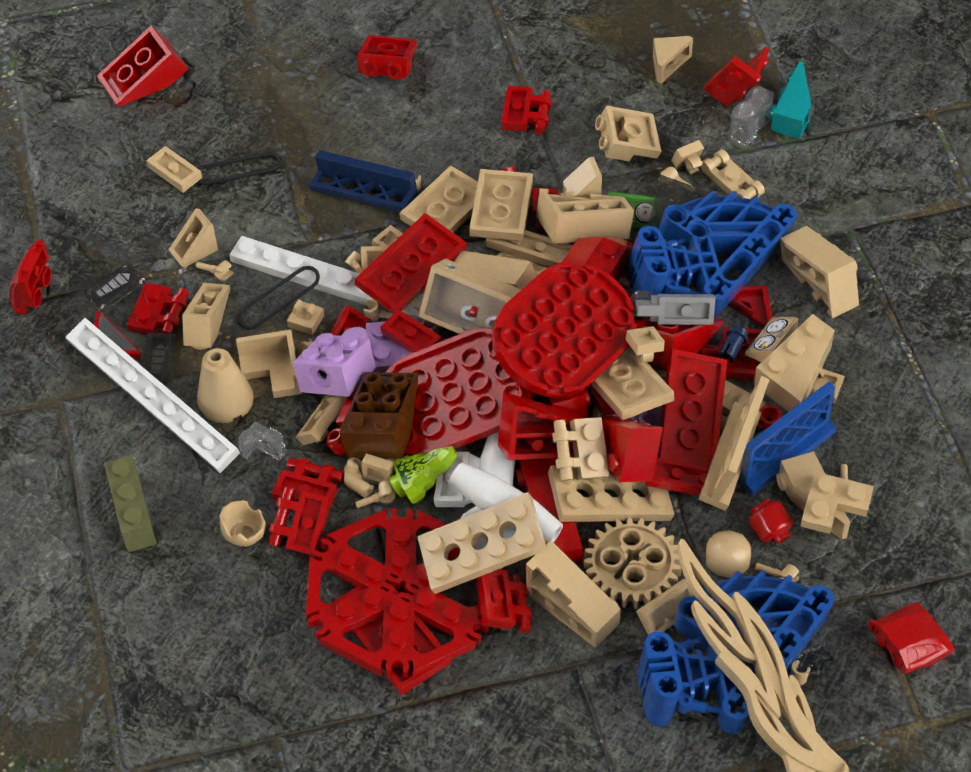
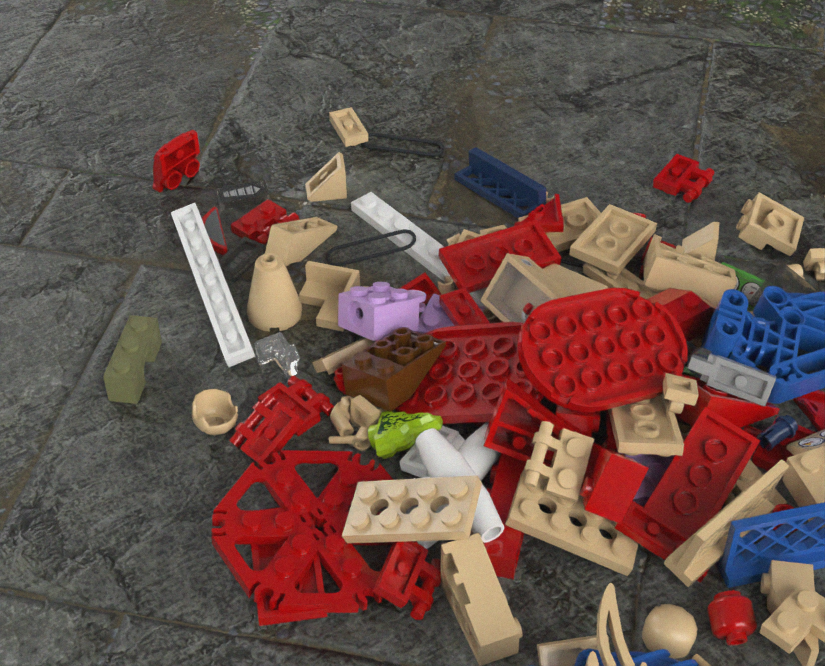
camera: 25 degrees right, 10 degrees down
(142, 68) = (372, 50): red slope -> none
(221, 271) = (336, 212): tan hand -> none
(305, 317) = (384, 270): tan tile -> none
(386, 56) = (580, 101): red plate -> none
(427, 201) = (547, 215): none -> red tile
(612, 547) = (558, 595): tan gear -> none

